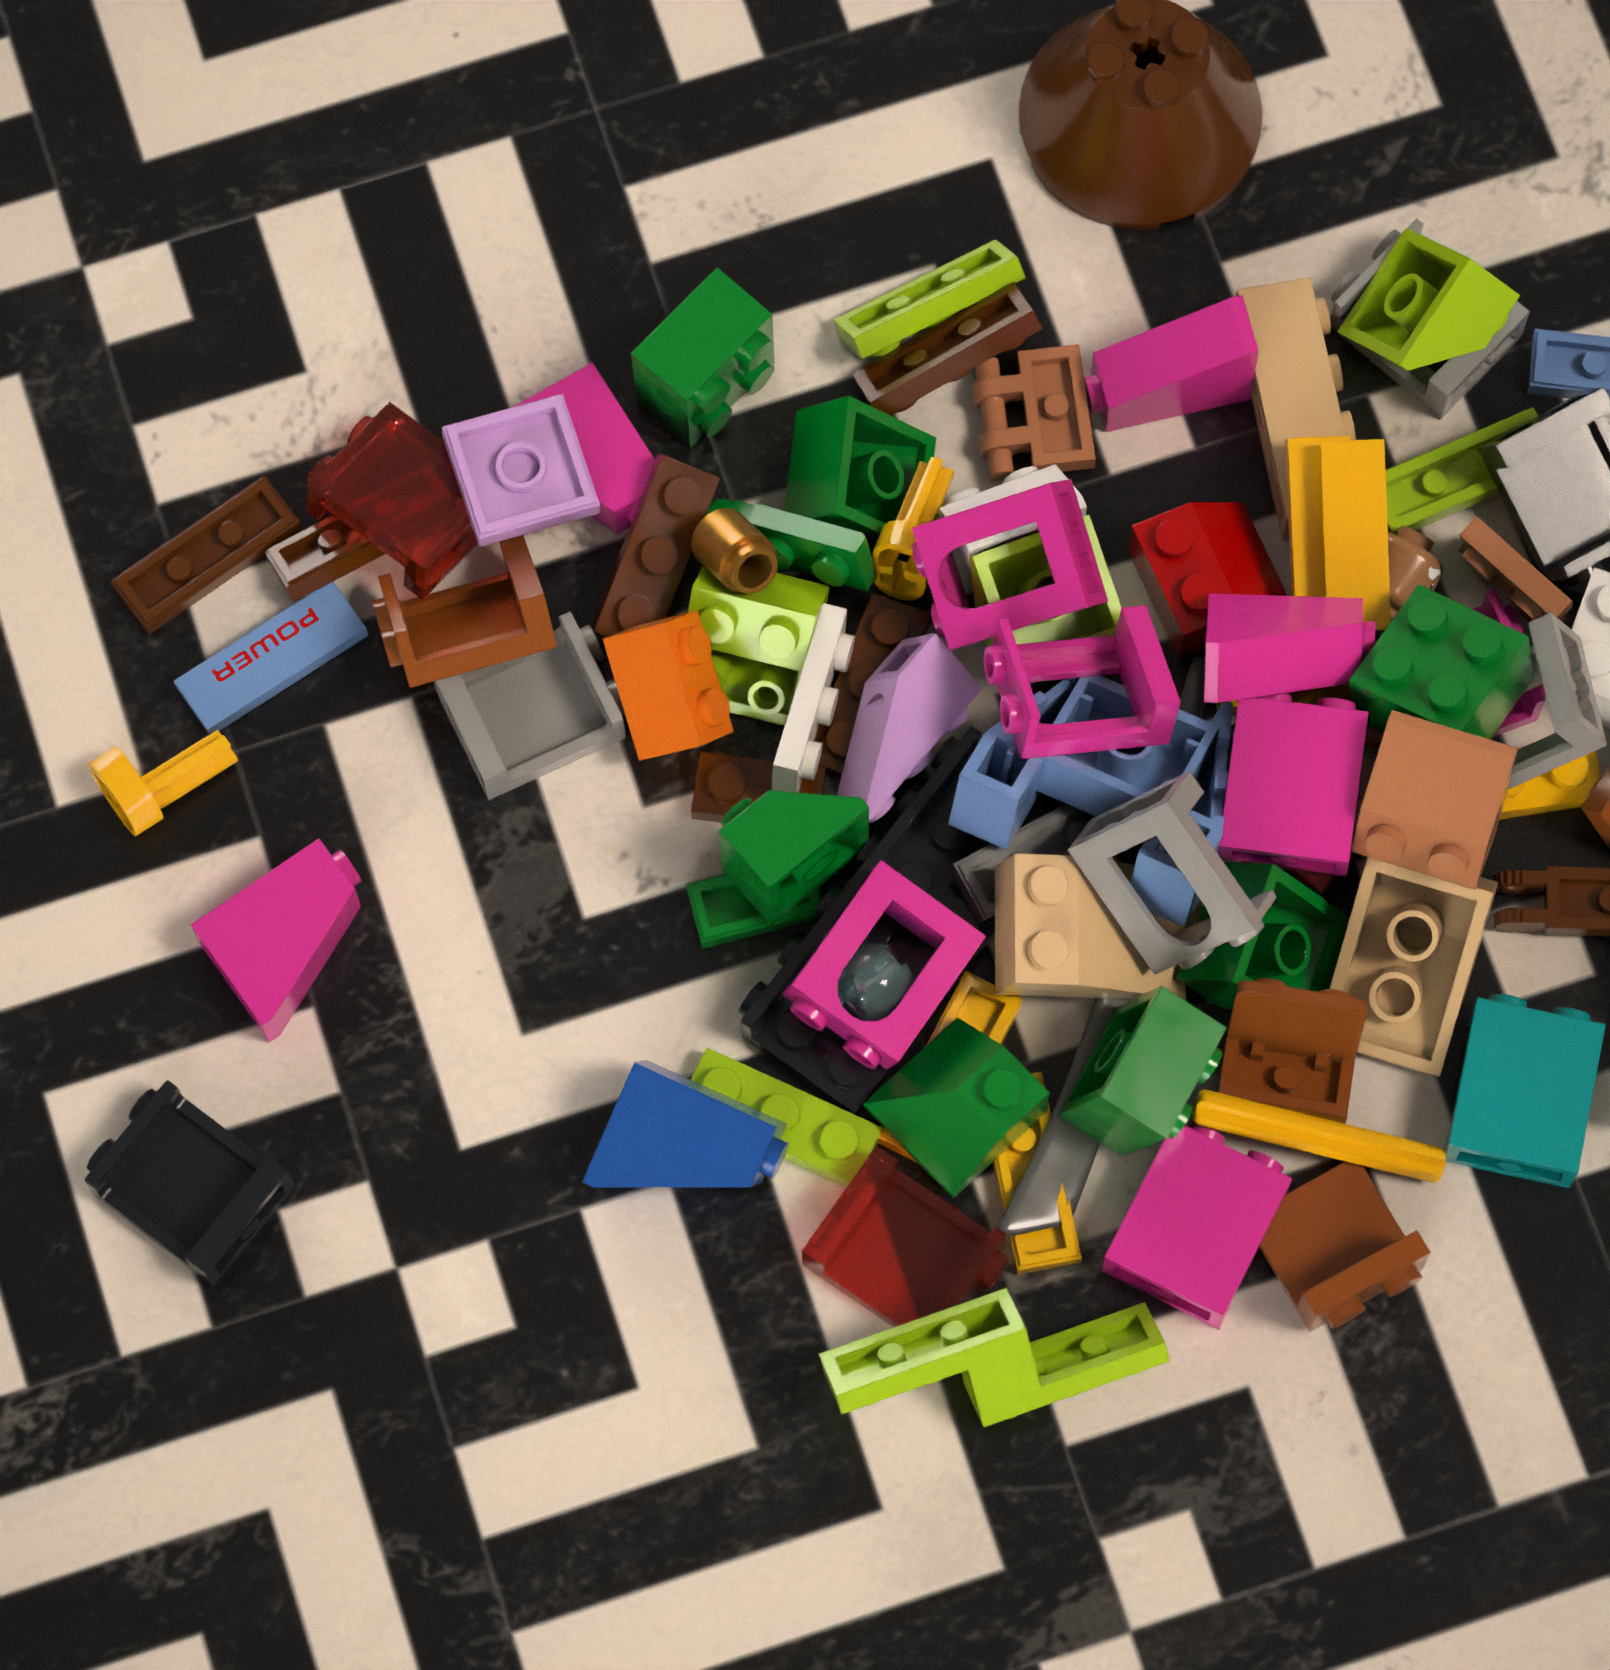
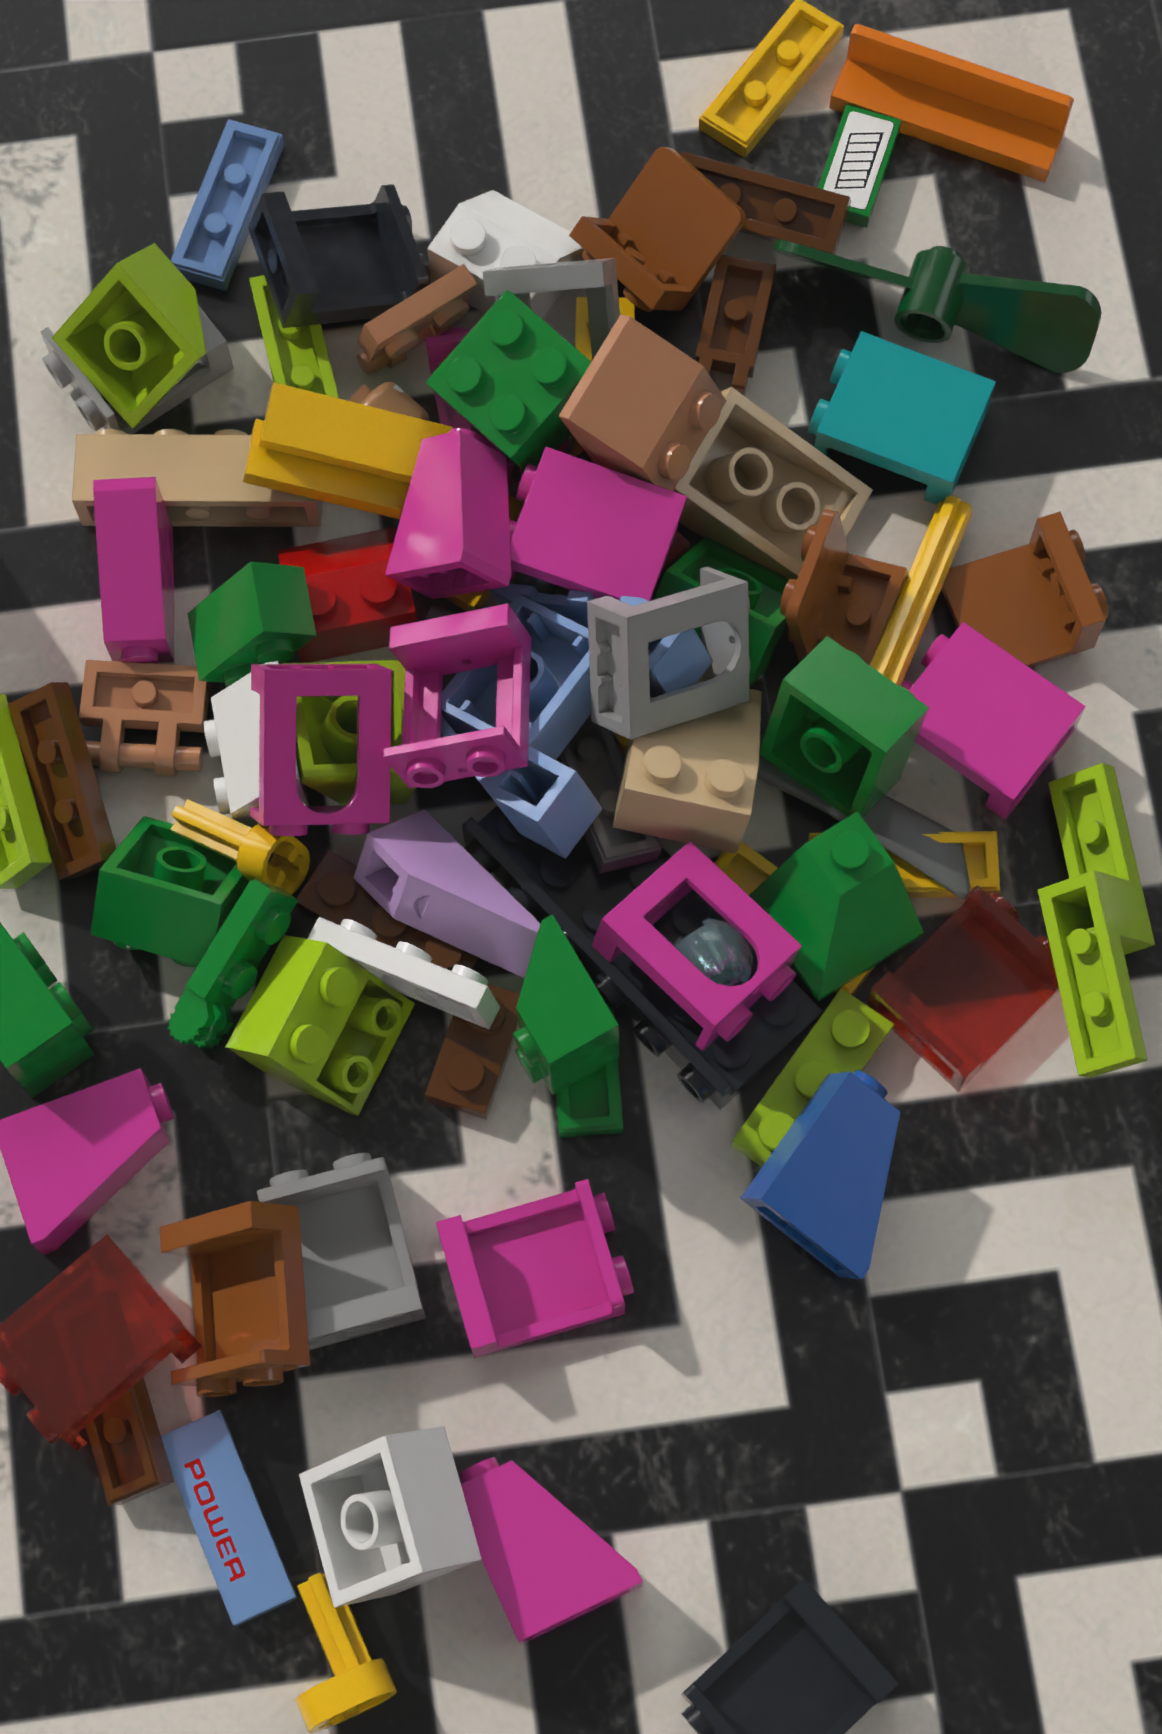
camera: 80 degrees left, 0 degrees up
(206, 555) = (96, 1570): reddish brown tile -> none
(285, 788) = (389, 1516): none -> white brick
(520, 470) = (96, 1212): lavender tile -> none
(546, 881) = (535, 1269): none -> dark pink panel
(655, 546) = (211, 1098): reddish brown plate -> none
(668, 685) = (360, 1103): orange brick -> none
(734, 551) = (241, 1007): pearl gold brick -> none
(1135, 483) = (250, 620): none -> green brick

